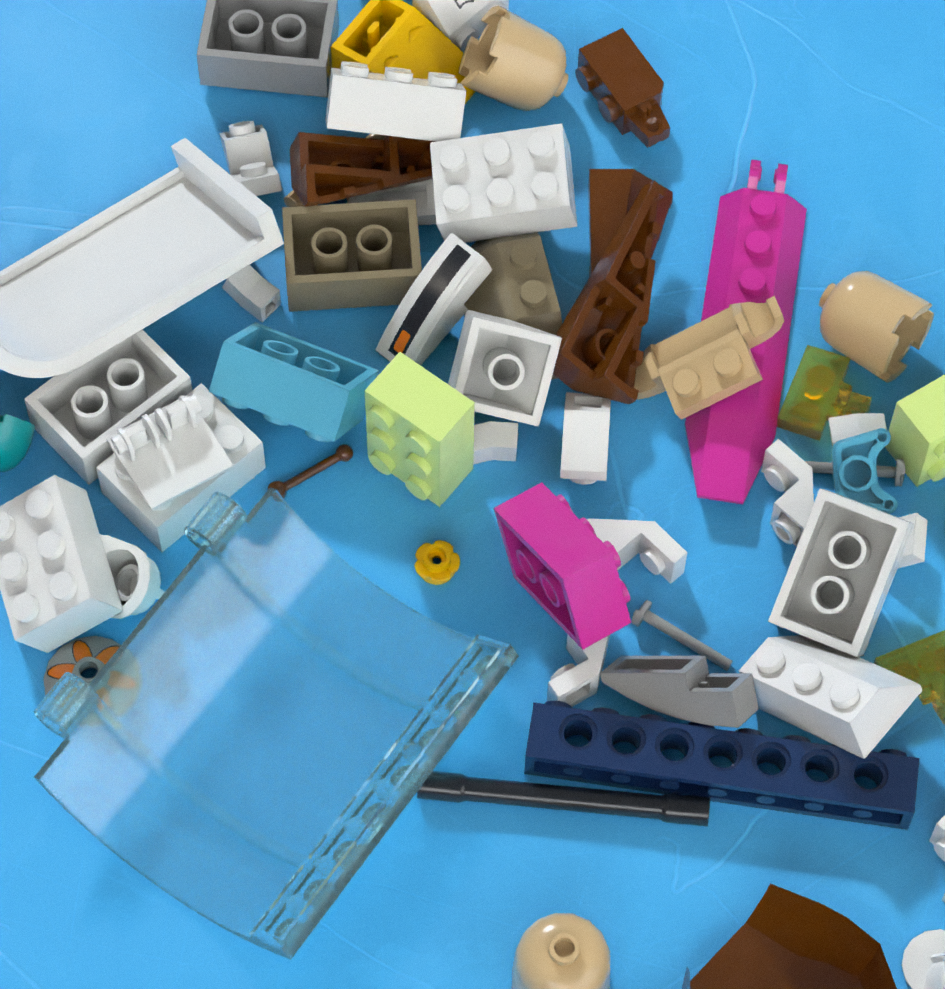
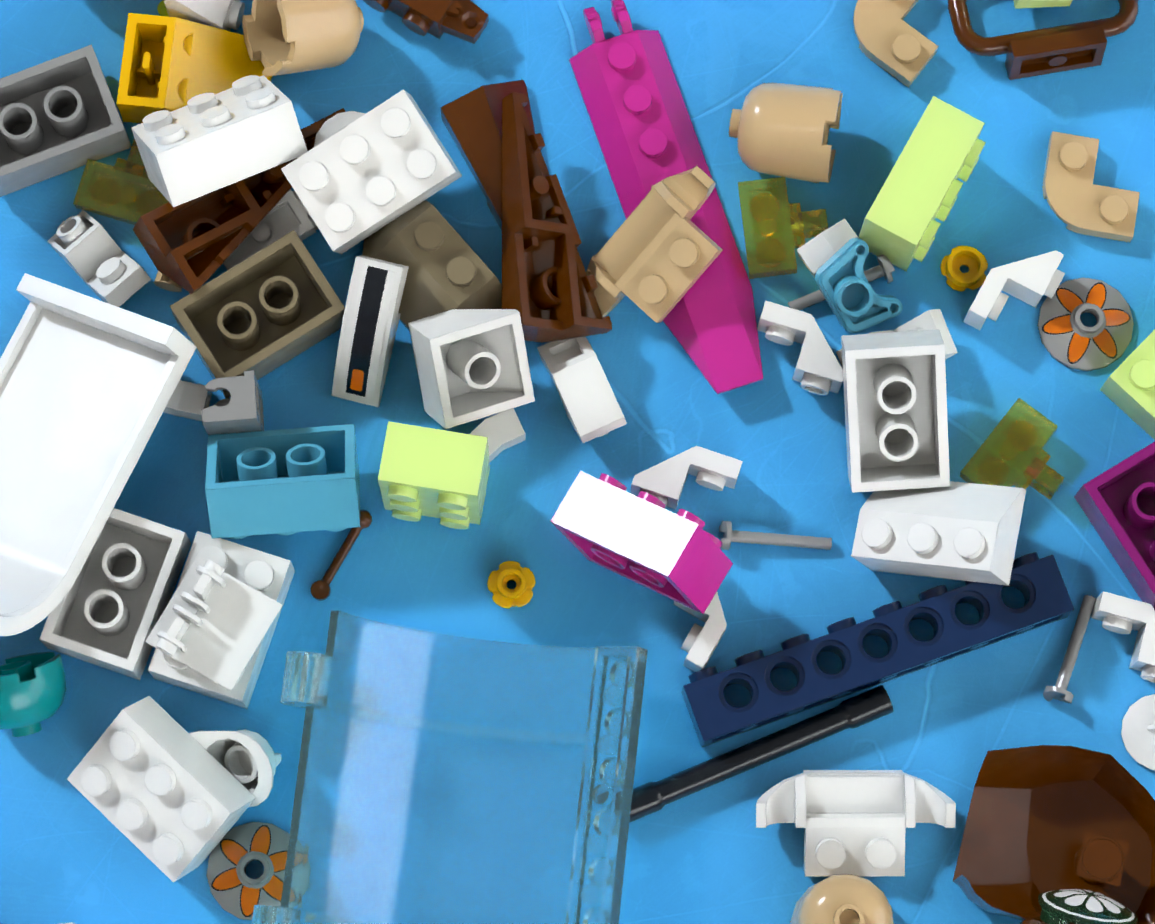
camera: 30 degrees left, 15 degrees up
(289, 114) = (118, 190): none -> clear yellow hinge
(291, 310) = (240, 412): none -> light grey hinge
(624, 890) = (854, 817): none -> white plate
(684, 688) = (807, 597): light grey slope -> none
(866, 884) = (1060, 691): none -> light grey piece

